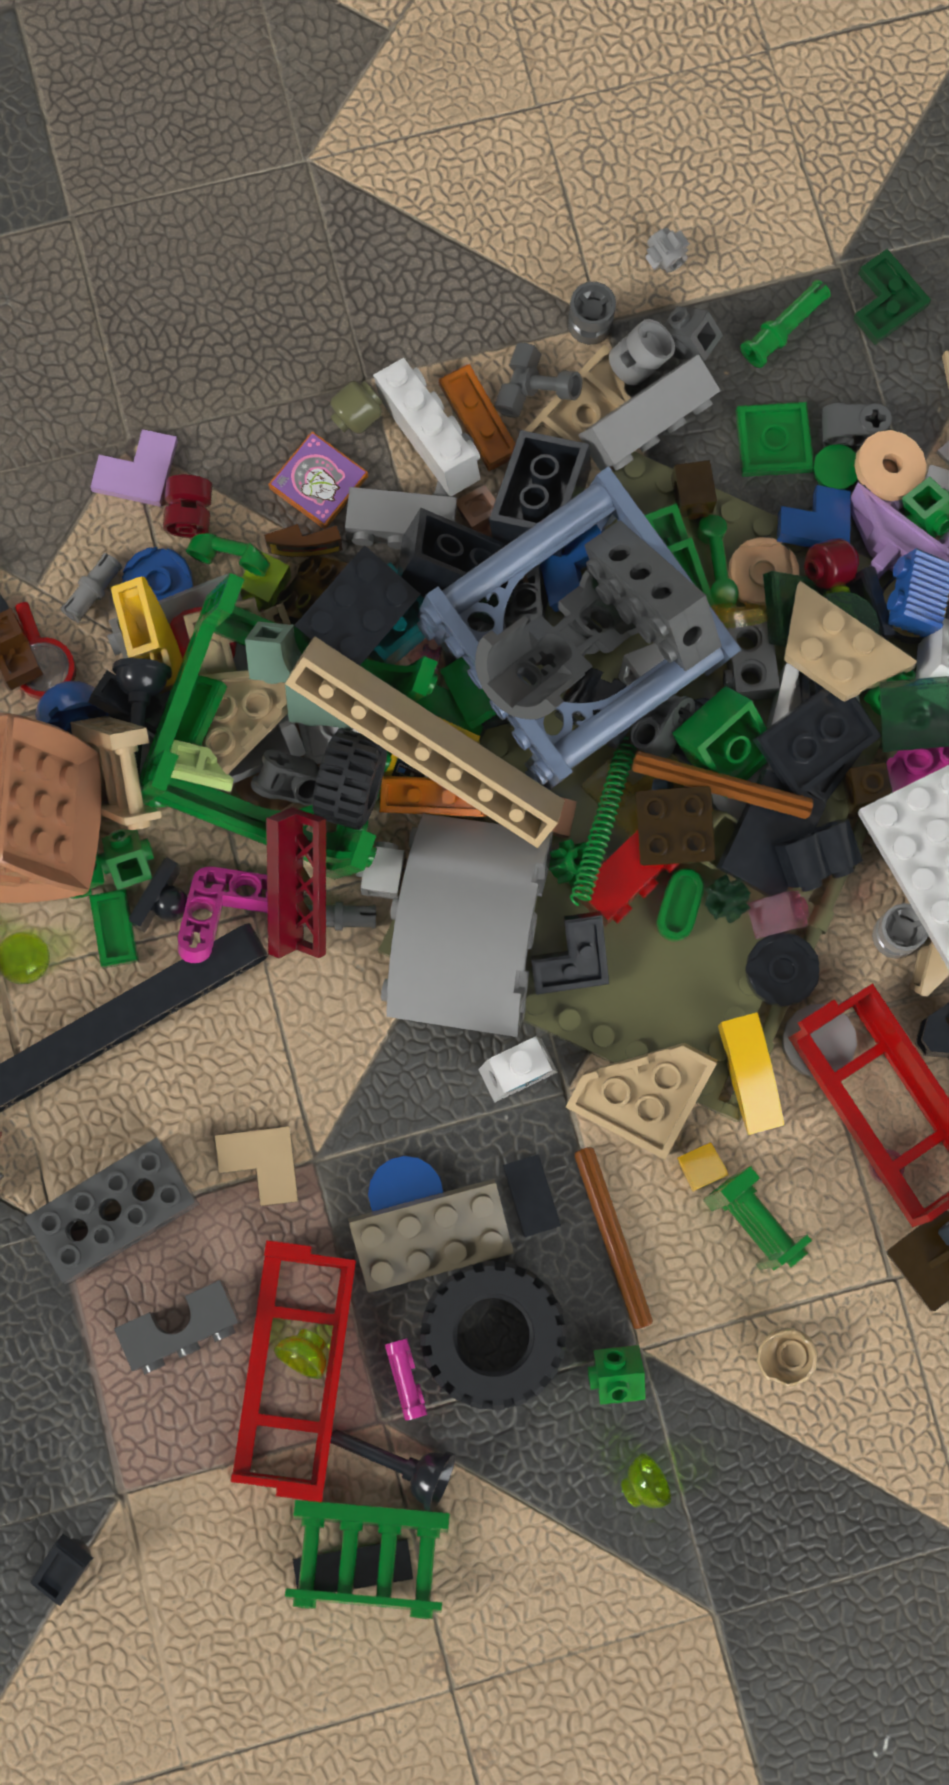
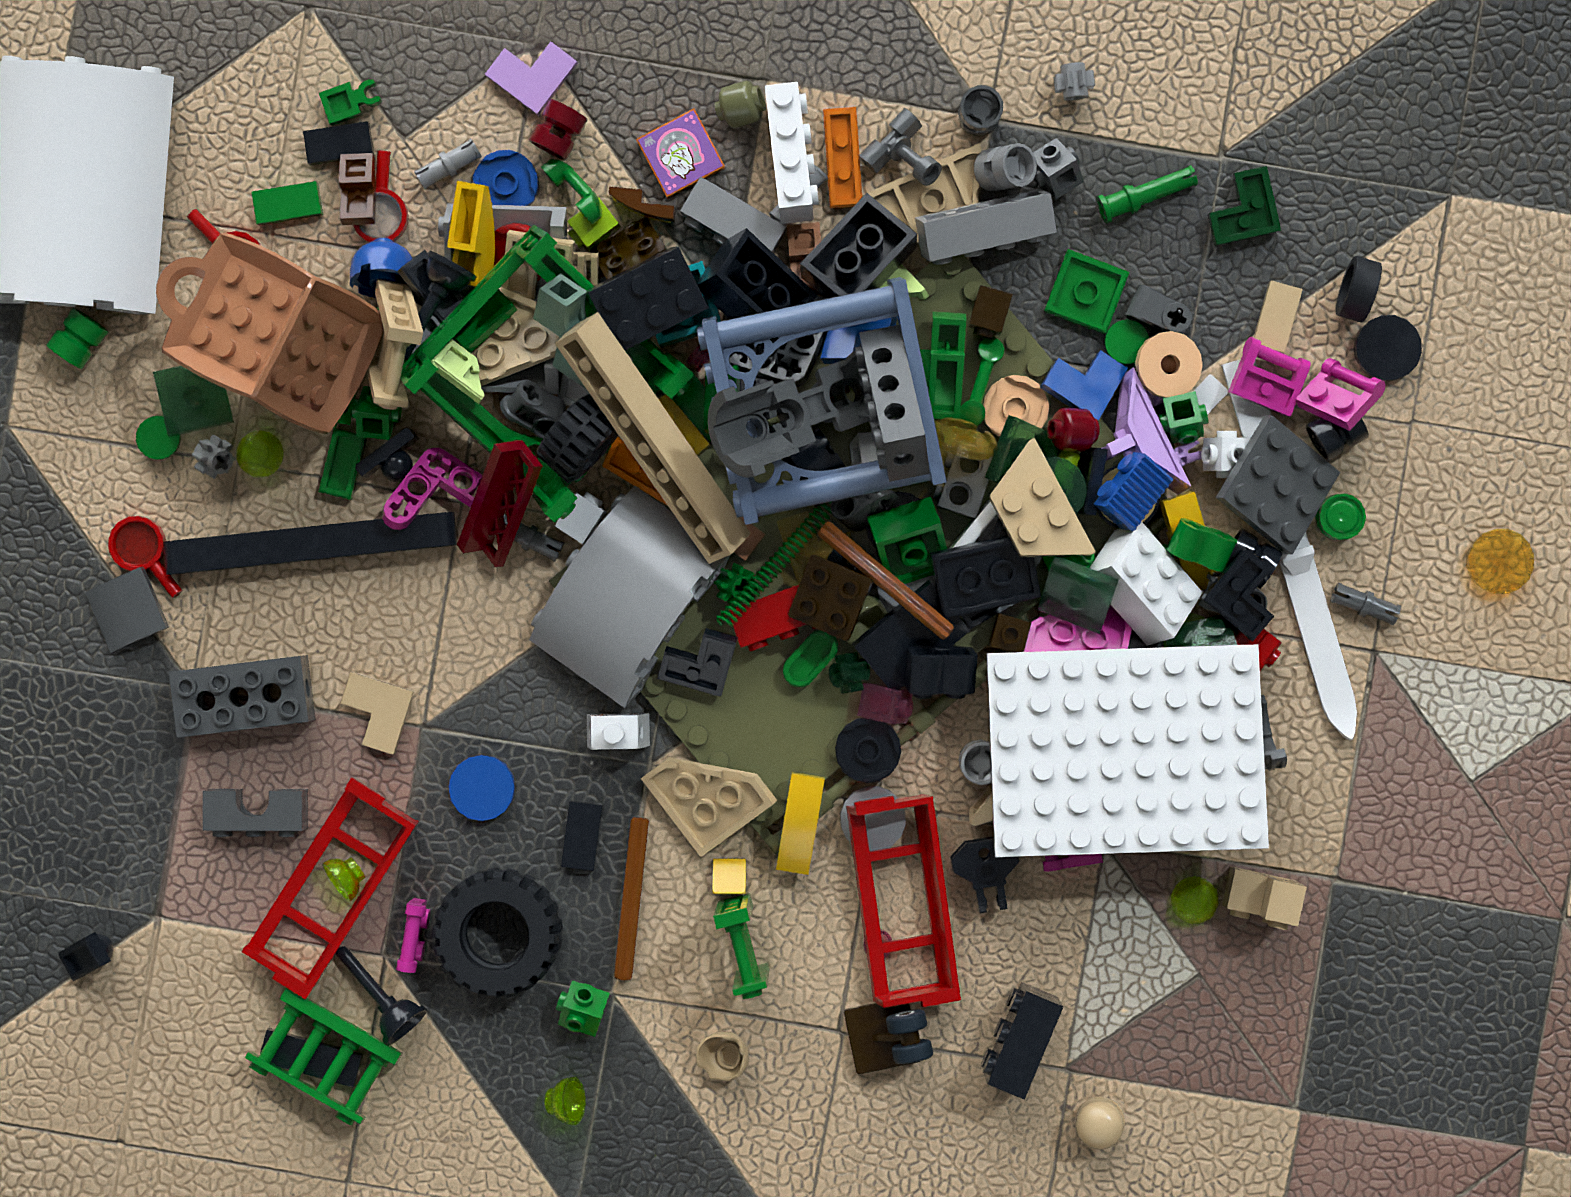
camera: 30 degrees right, 10 degrees up
(431, 1235) = (485, 831): dark tan plate -> none

